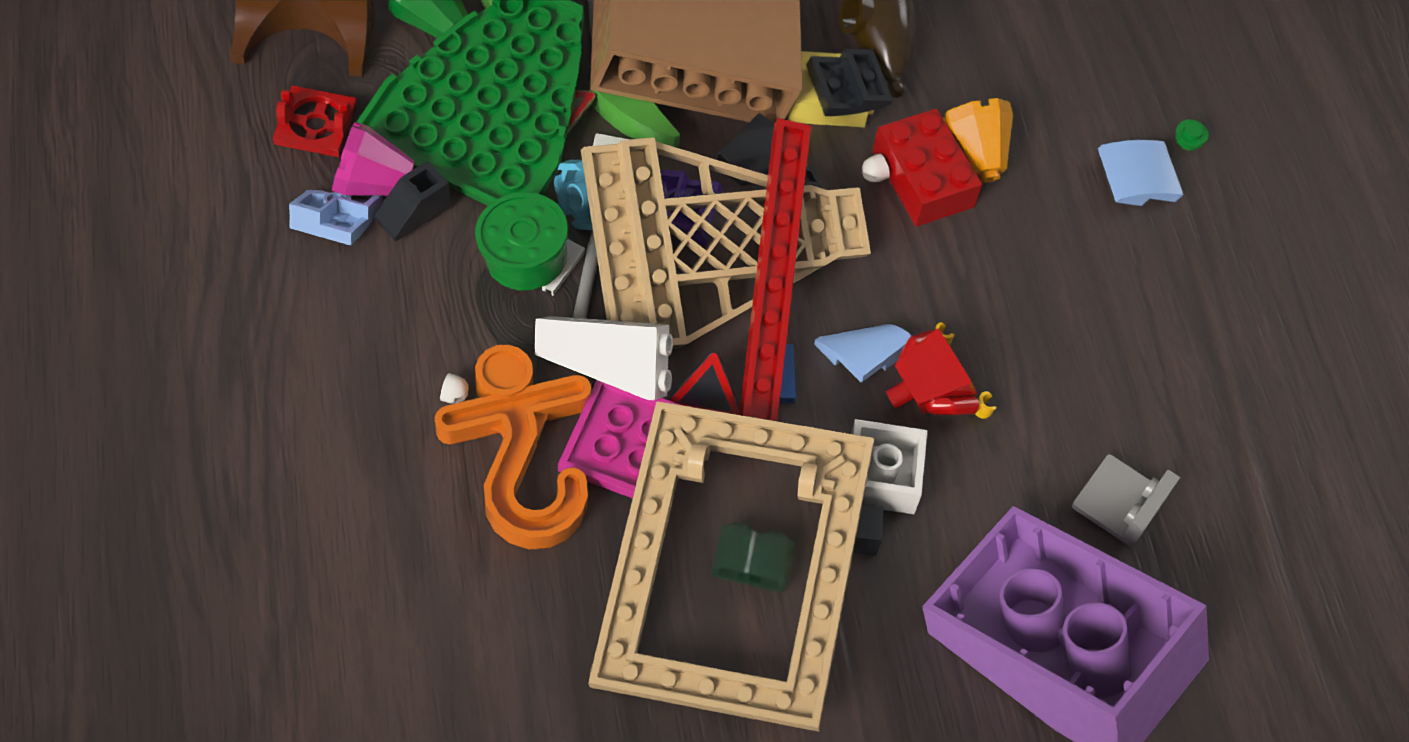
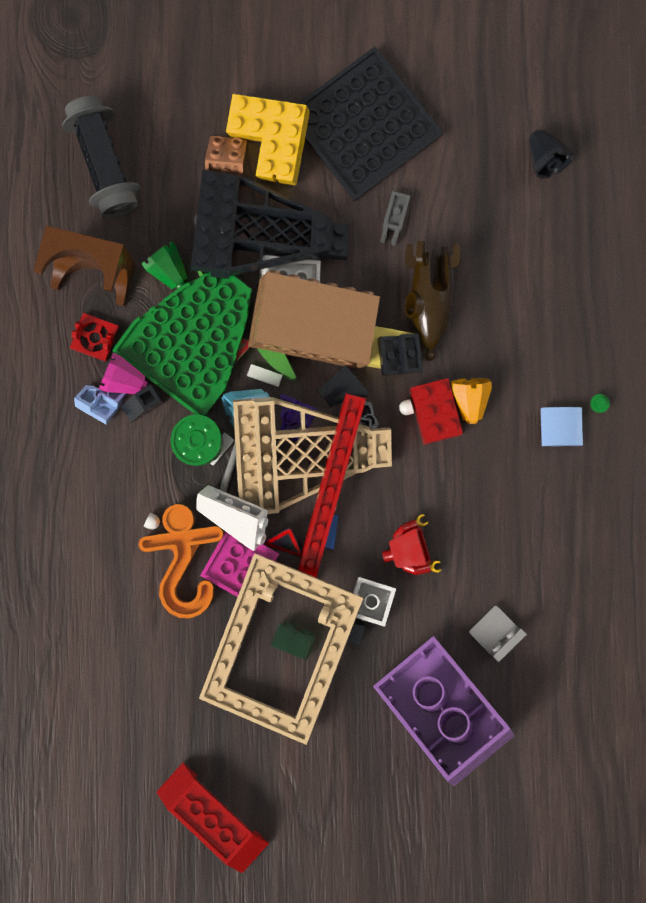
camera: 15 degrees right, 25 degrees up
(864, 349) = (377, 523): light blue slope -> none

